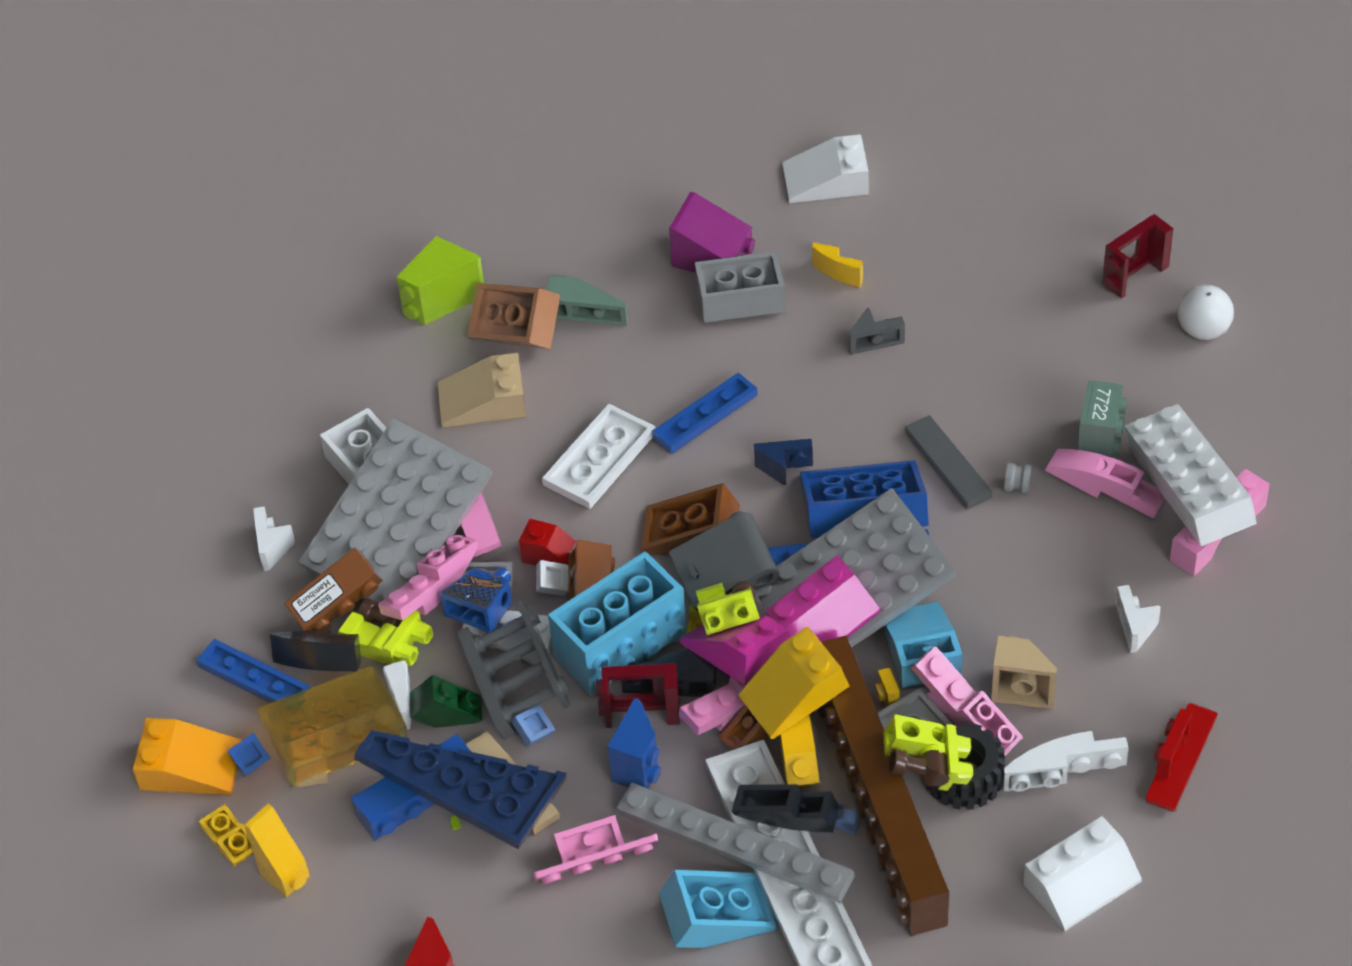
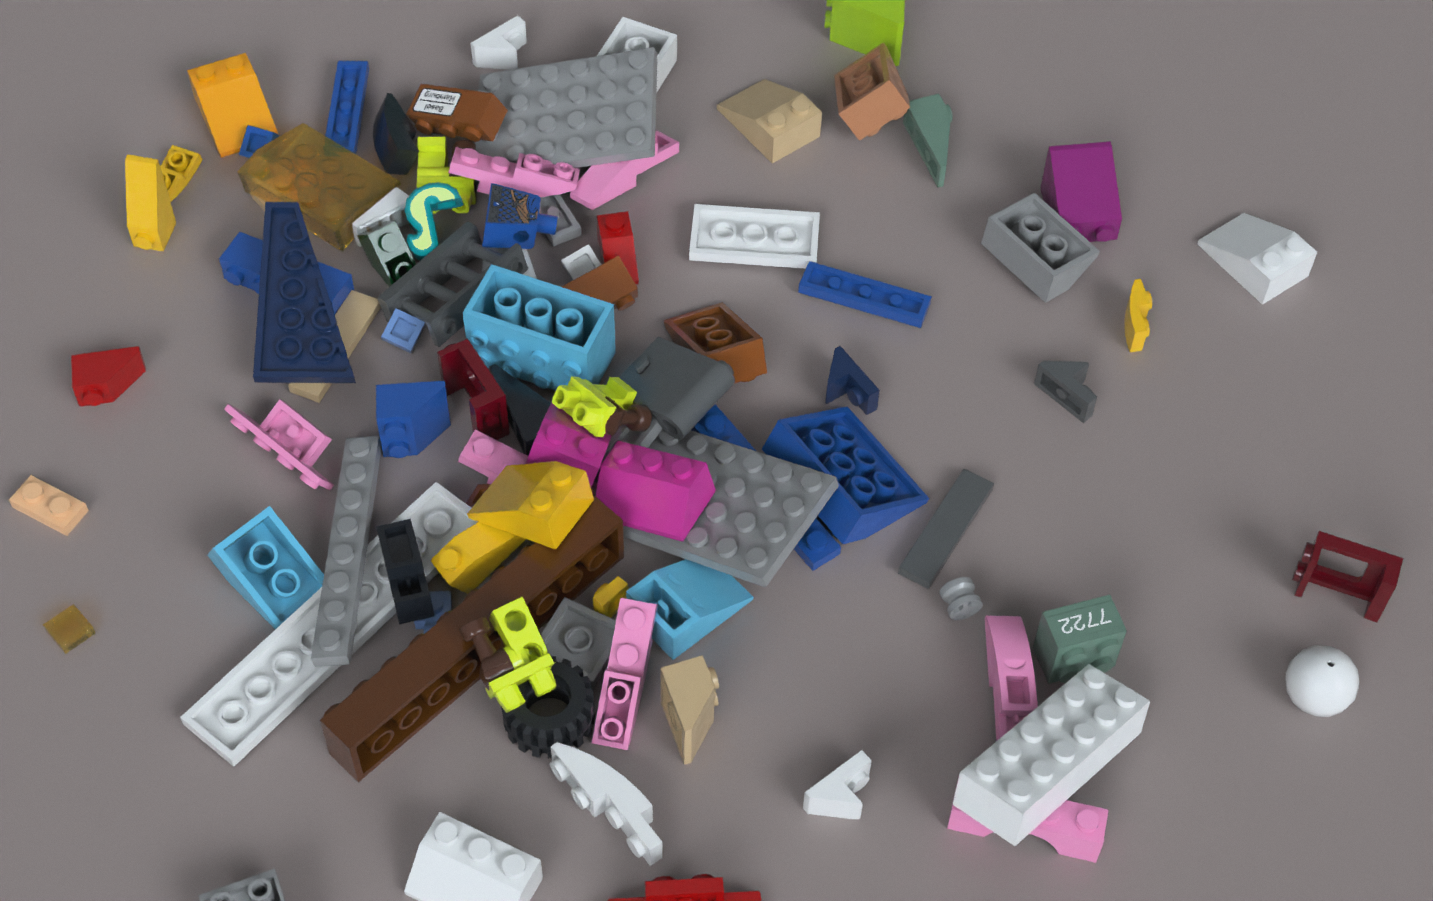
camera: 55 degrees right, 5 degrees up
(428, 661) = (420, 216): none -> teal animal

